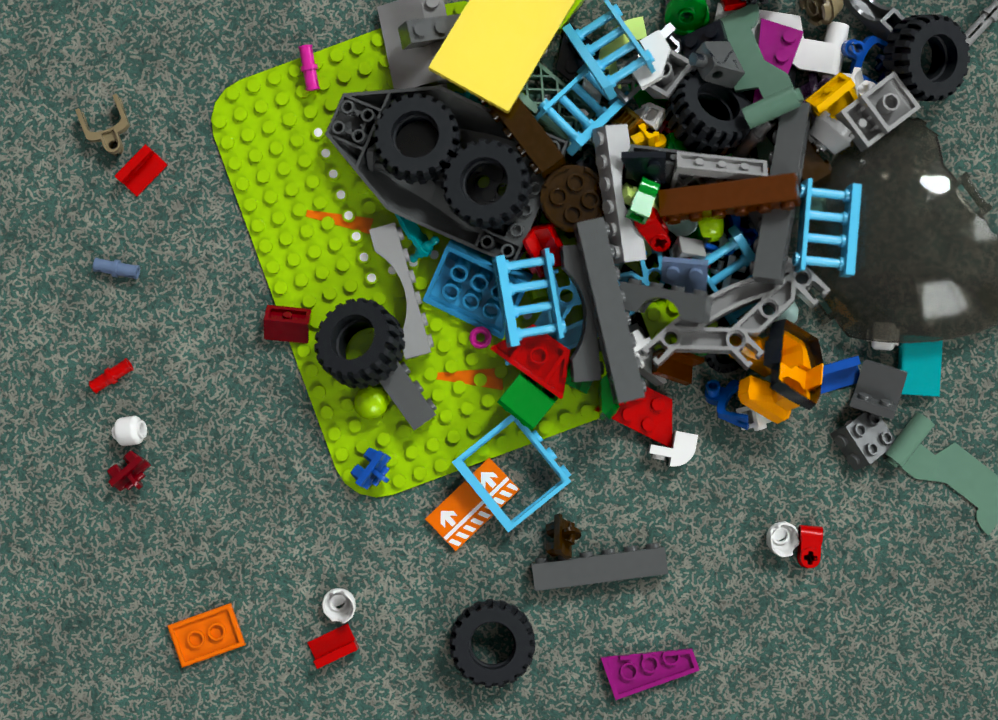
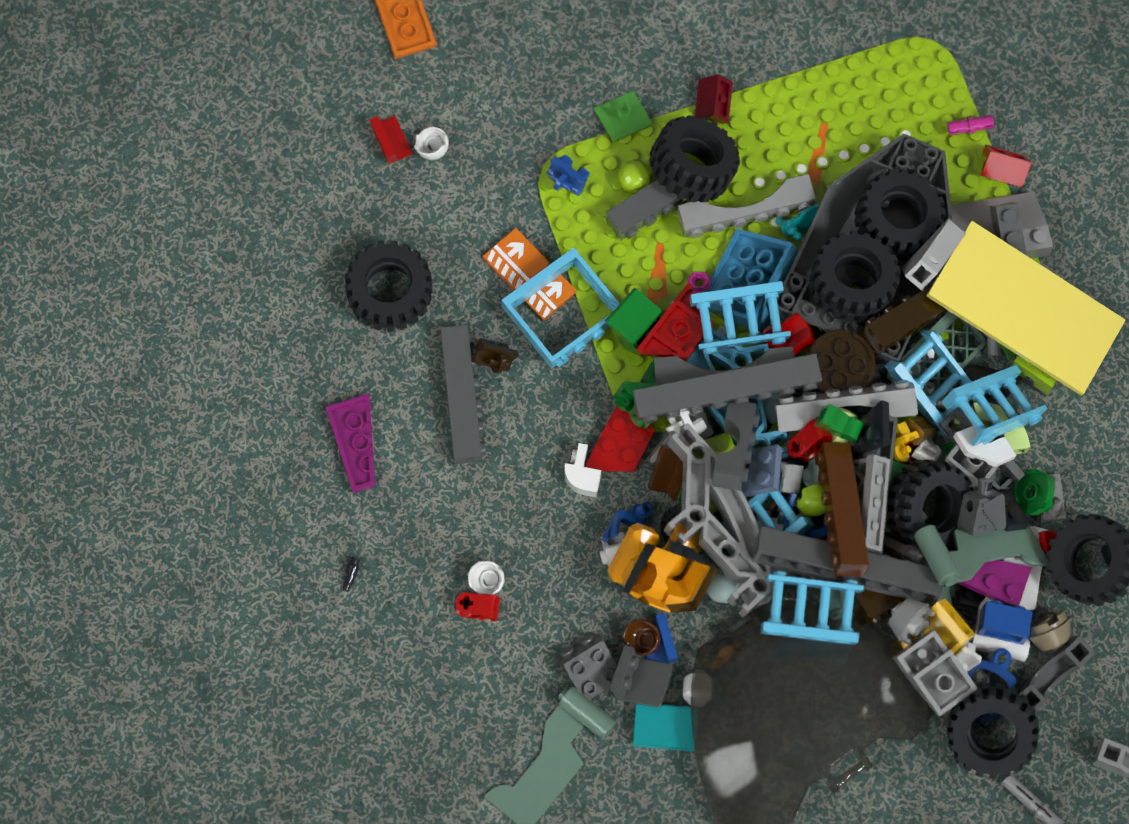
camera: 90 degrees right, 15 degrees down
(304, 414) = (623, 116): none -> bright green piece
(350, 34) = (1005, 166): none -> panel
(465, 106) = (933, 254): none -> light grey slope
(775, 667) = (351, 572): none -> black piece
(820, 45) = (1005, 622): none -> blue brick
(838, 389) = (642, 636): none -> reddish brown hair

